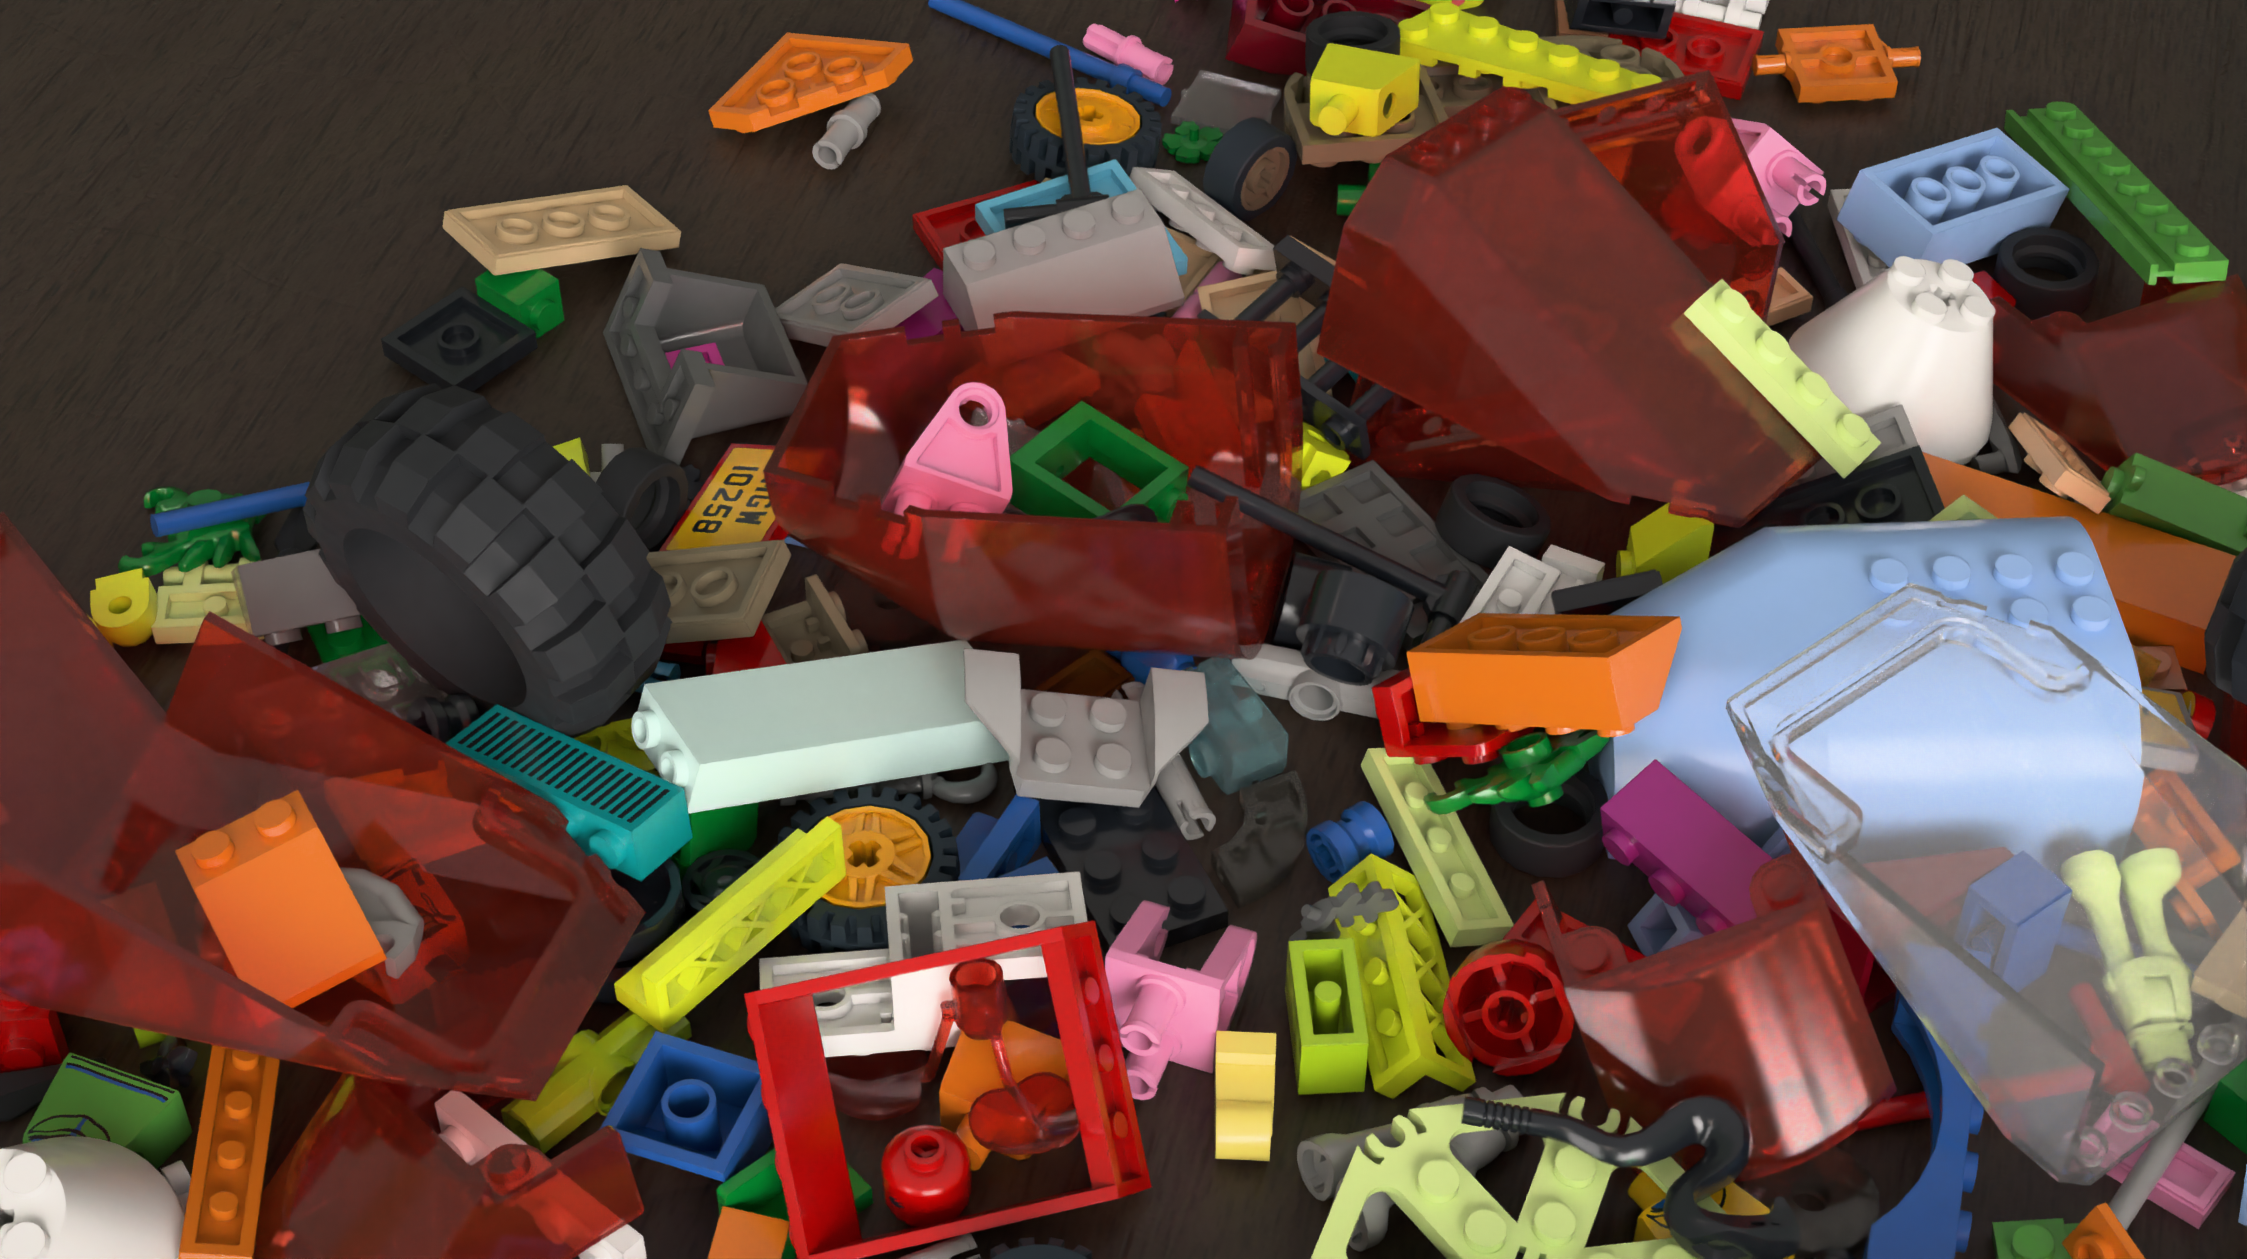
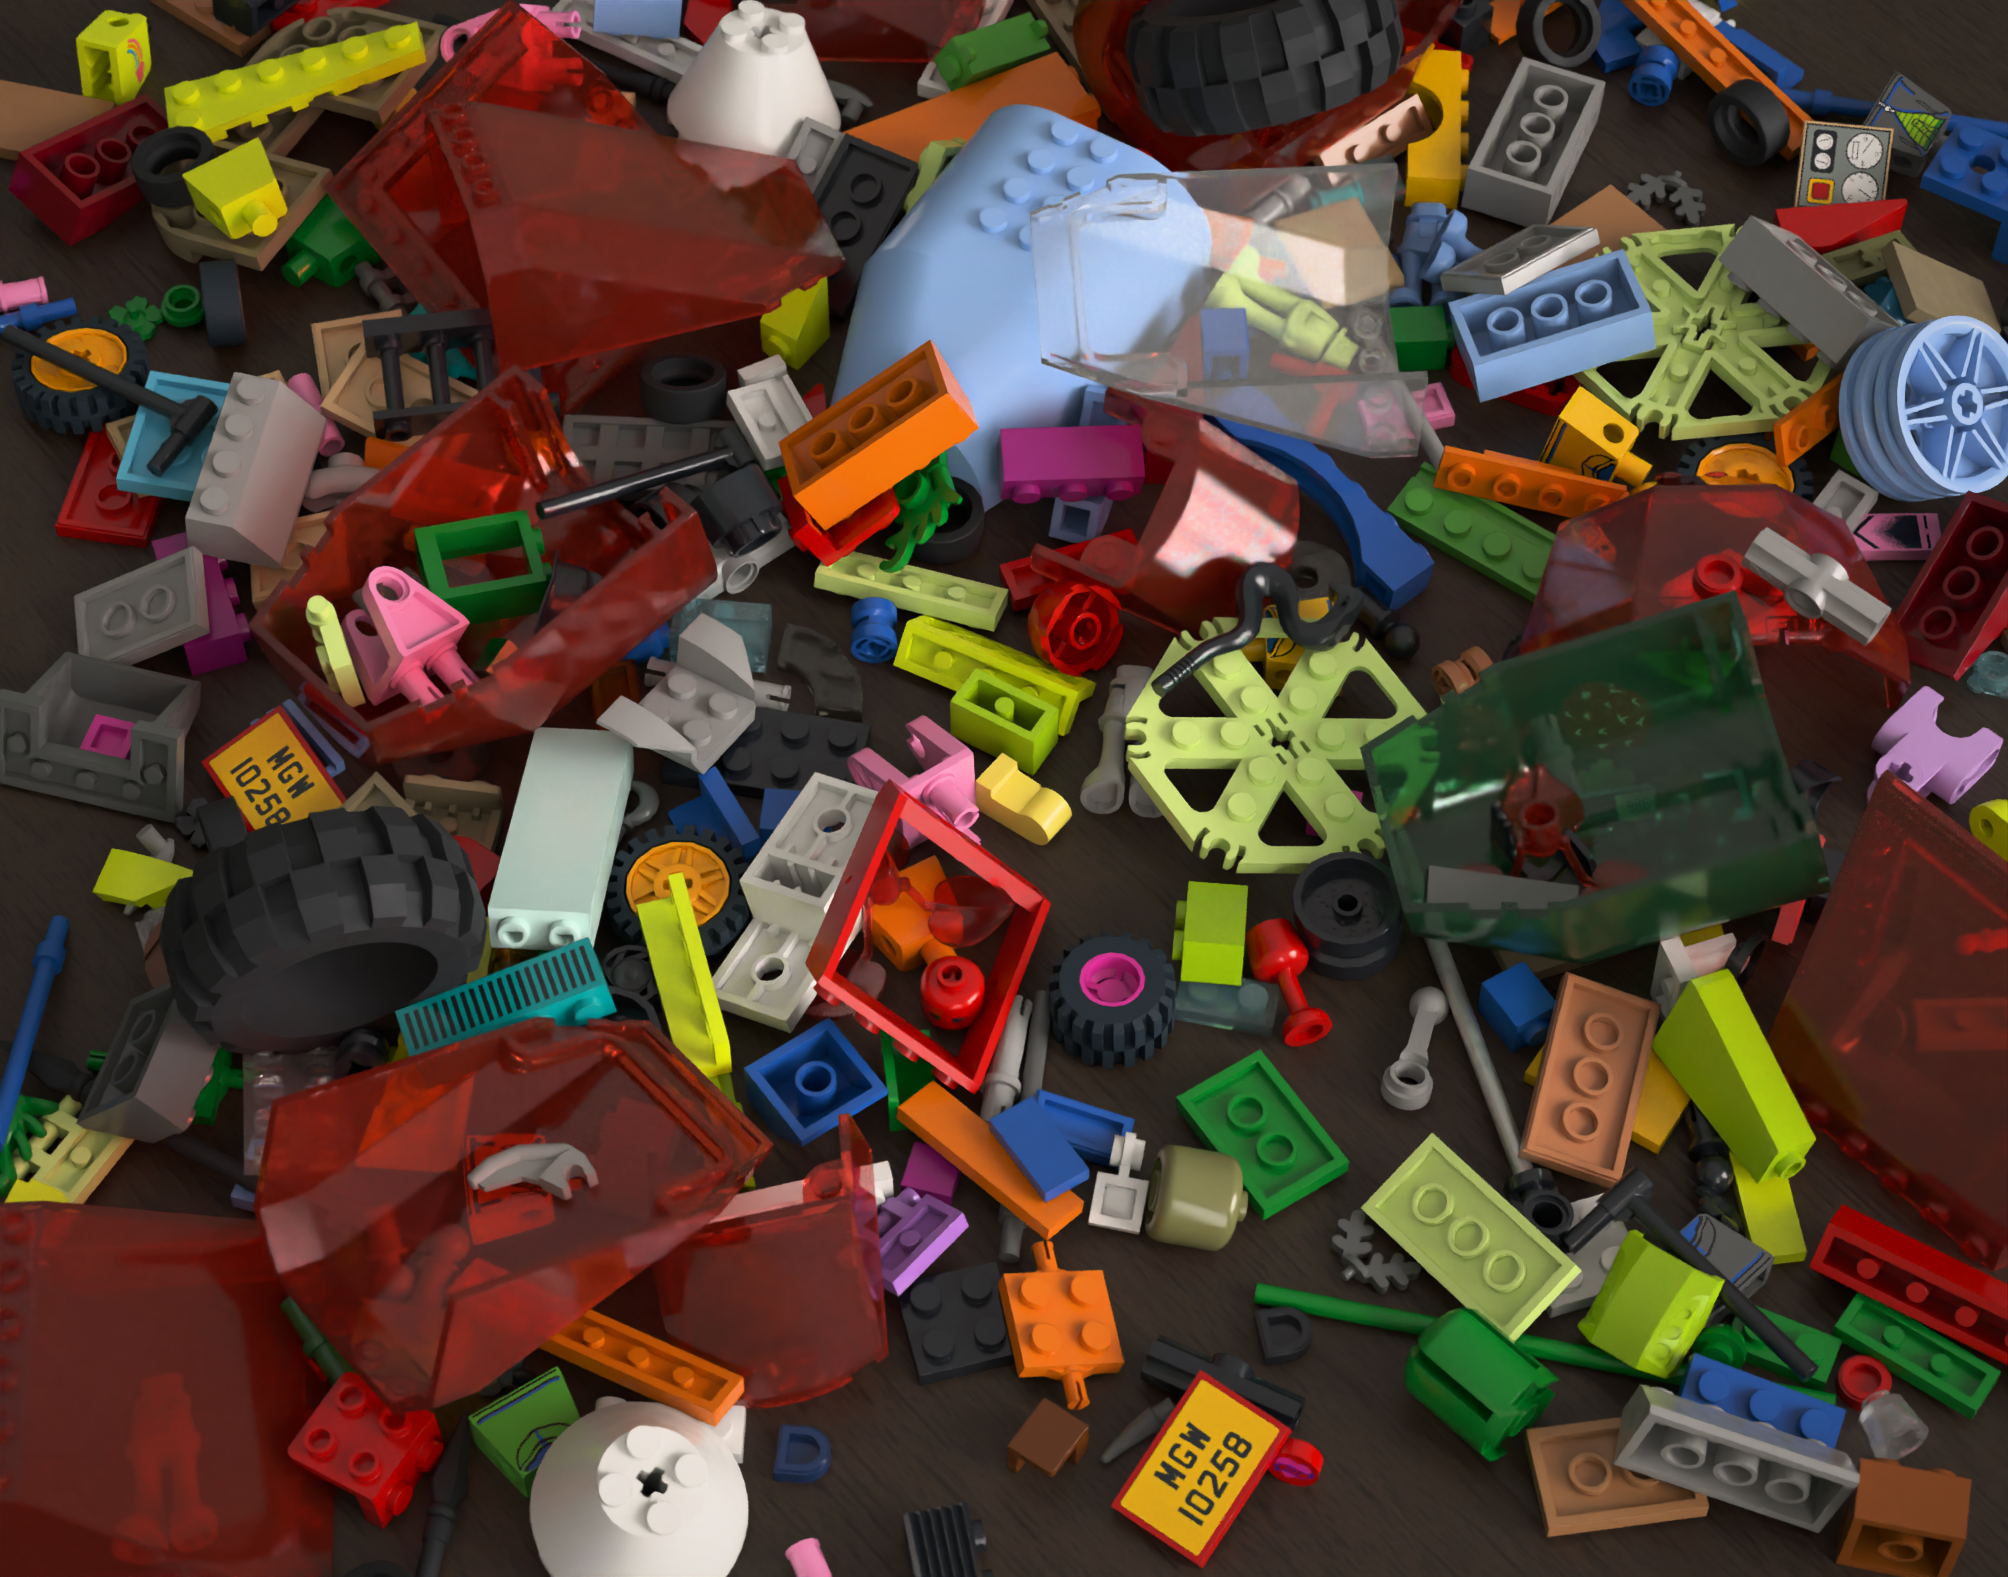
camera: 55 degrees left, 10 degrees up
(280, 902) = (497, 1209): orange slope -> none
(880, 424) = (333, 650): none -> yellowish green plate
(1205, 220) = (264, 359): white plate -> none
(1224, 102) = (113, 277): clear piece -> none
(1349, 902) = (941, 671): dark grey animal -> none
(1605, 595) = (817, 365): black tile -> none
(1782, 377) = (748, 156): yellowish green plate -> none
(2058, 463) = (887, 79): light nougat plate -> none

